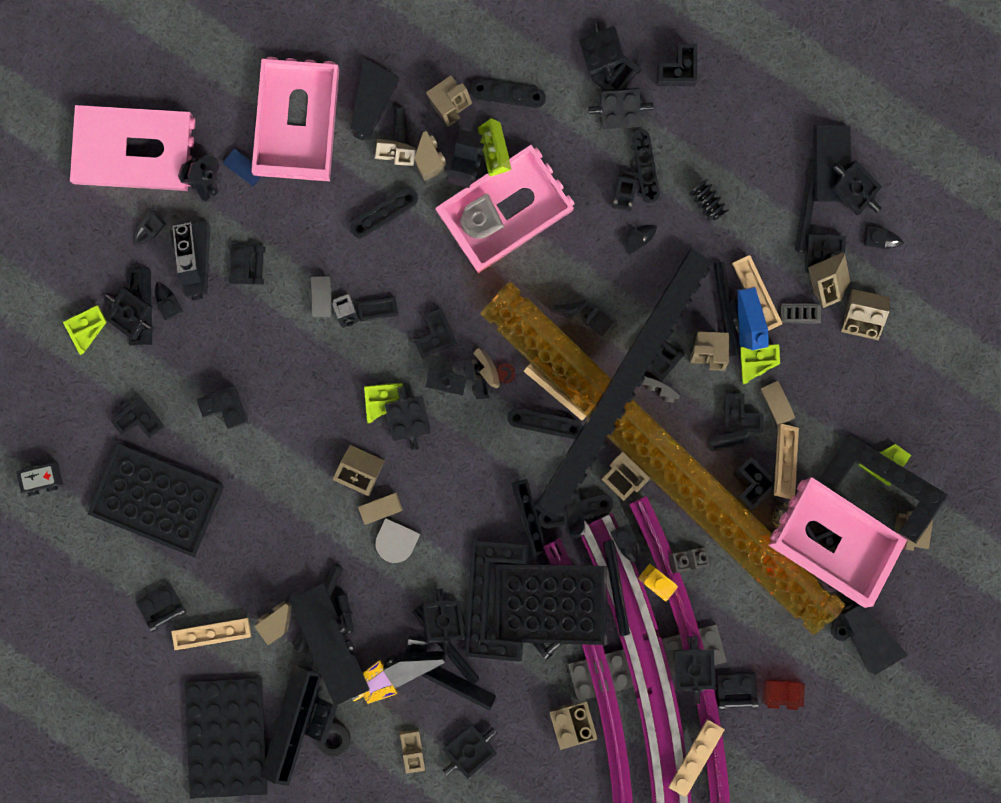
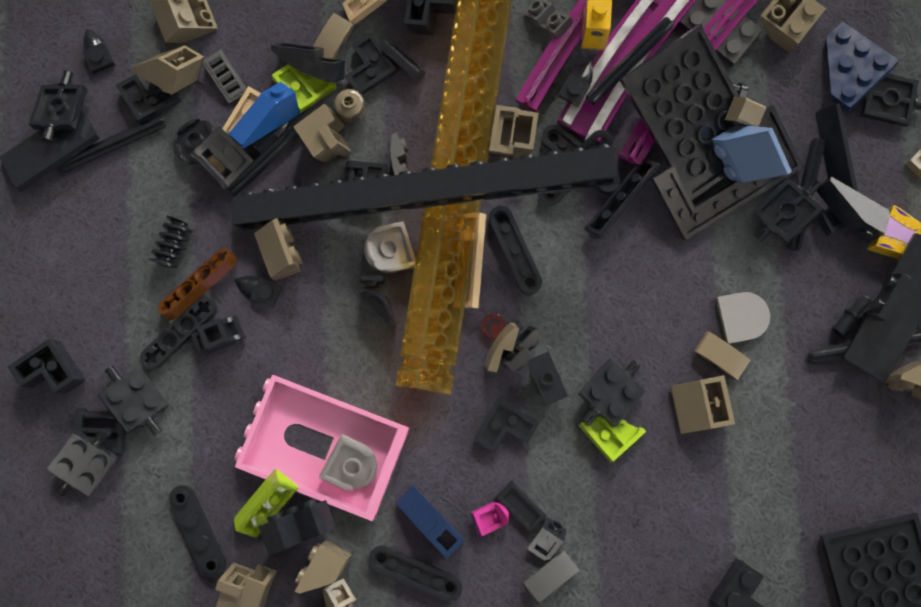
camera: 125 degrees left, 5 degrees down
(384, 283) = (490, 518): none -> dark pink plate
(409, 244) = (430, 521): none -> dark blue slope
(498, 616) = (750, 153): none -> medium blue slope
(508, 742) = (854, 65): none -> dark blue plate
(526, 636) = (745, 112): none -> dark tan piece
(604, 341) = (389, 248): none -> light grey tile
(654, 267) = (277, 251): none -> dark tan slope
(672, 199) = (216, 265): none -> reddish brown beam
(713, 380) = (350, 106): none -> dark tan head
(744, 277) = (226, 152): none -> black plate
(768, 263) = (190, 136): none -> black tile
(770, 377) = (311, 61): none -> black slope

